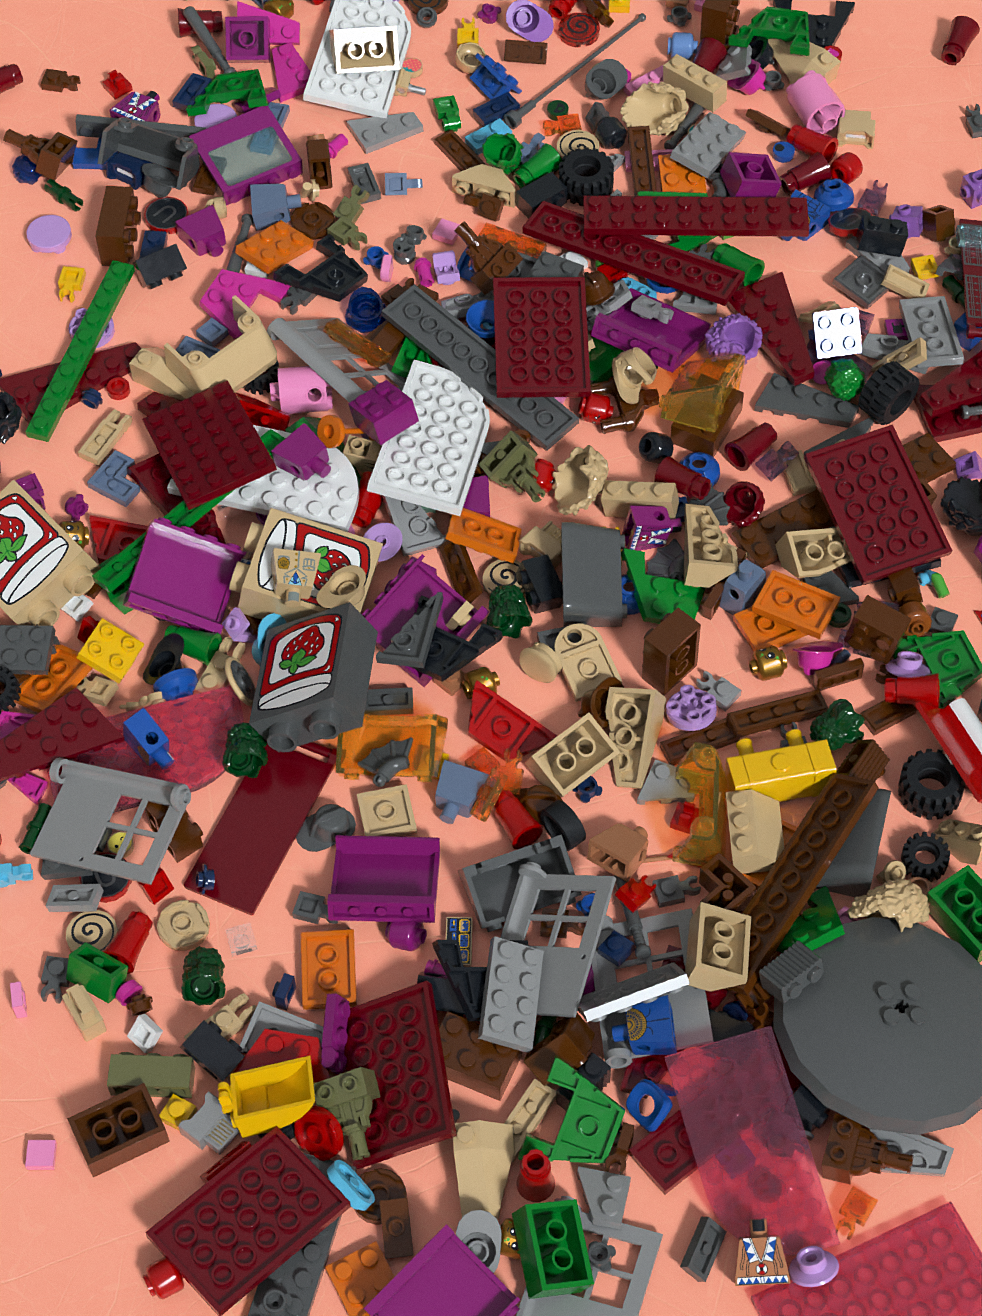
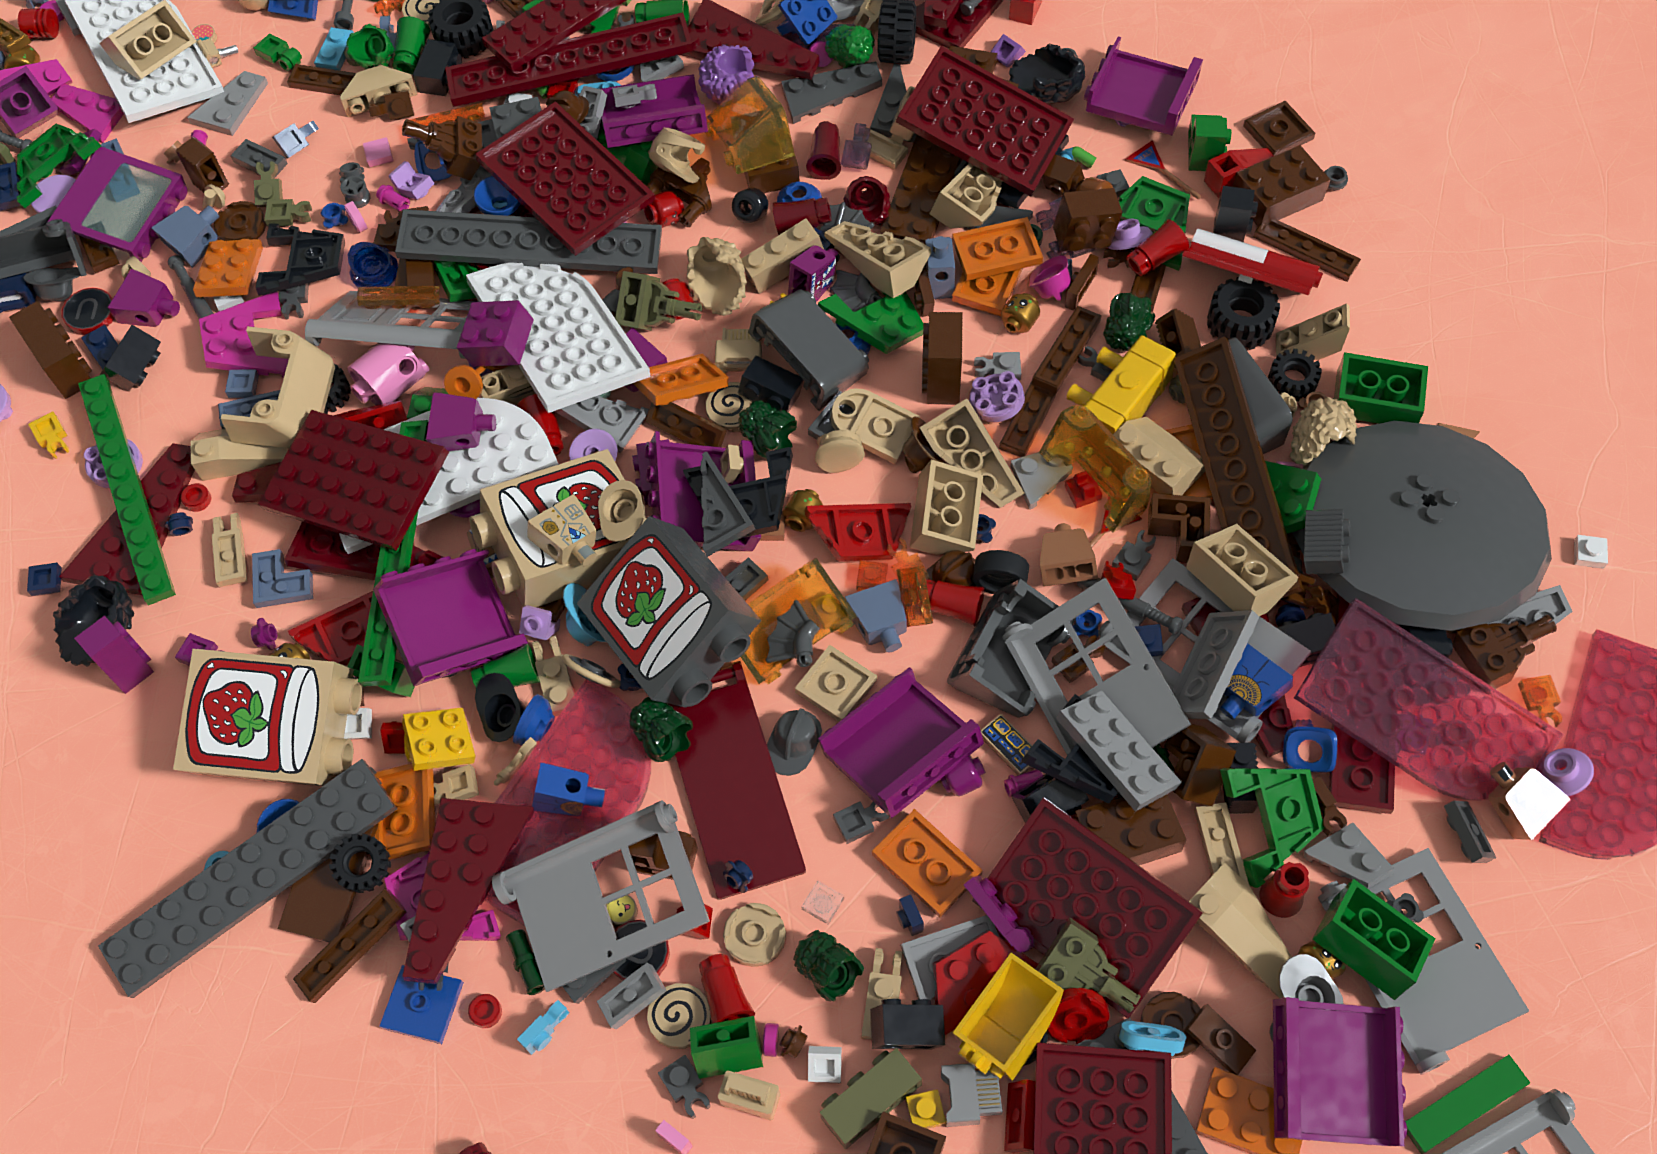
camera: 40 degrees left, 5 degrees up
(495, 109) = (319, 22): dark blue plate -> none

